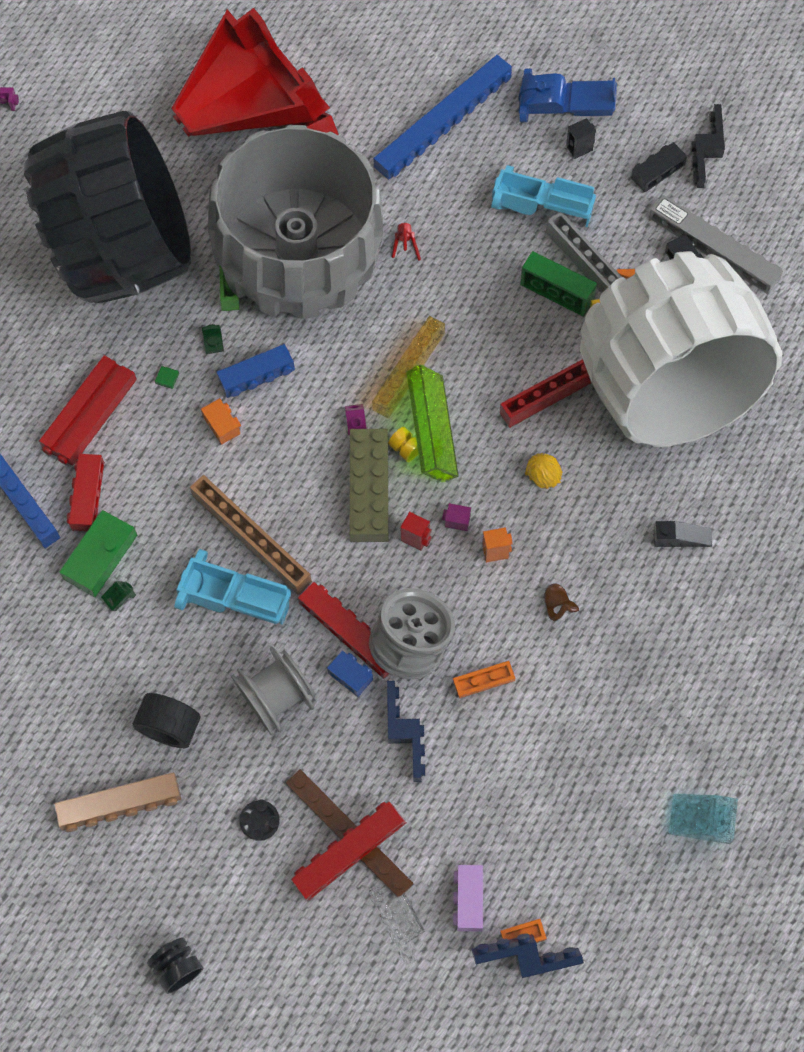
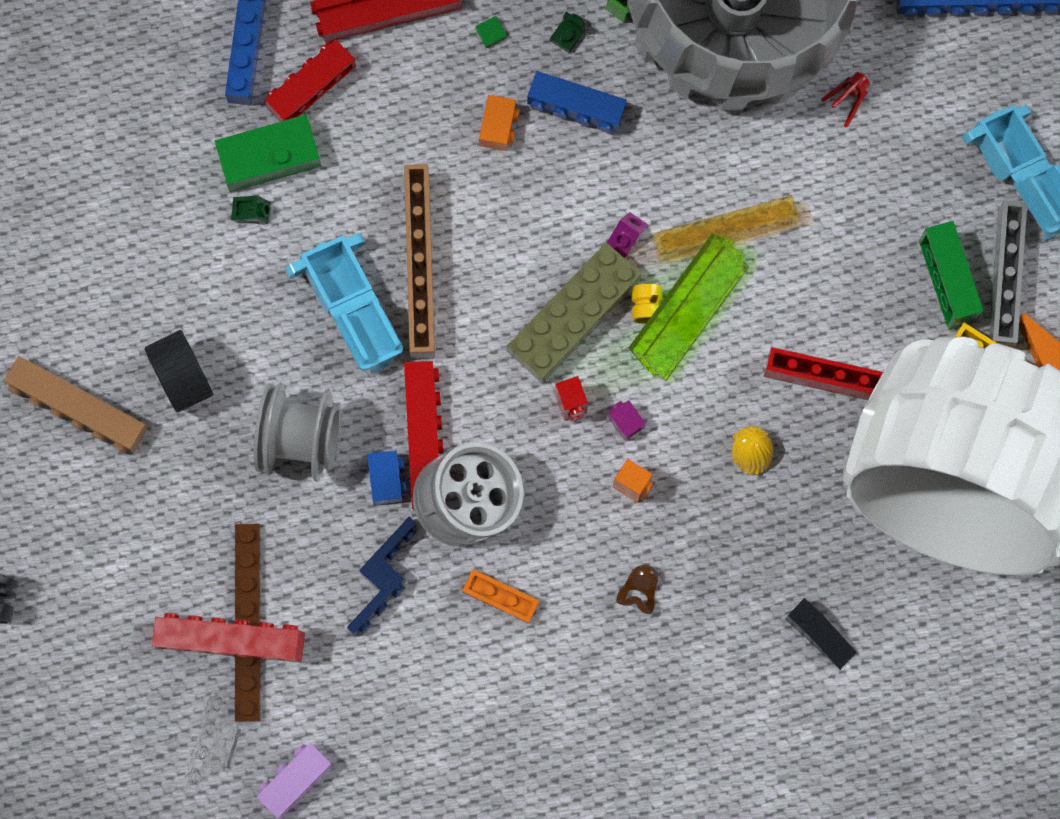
camera: 40 degrees right, 10 degrees up
(259, 820) = (181, 536): black dish -> none

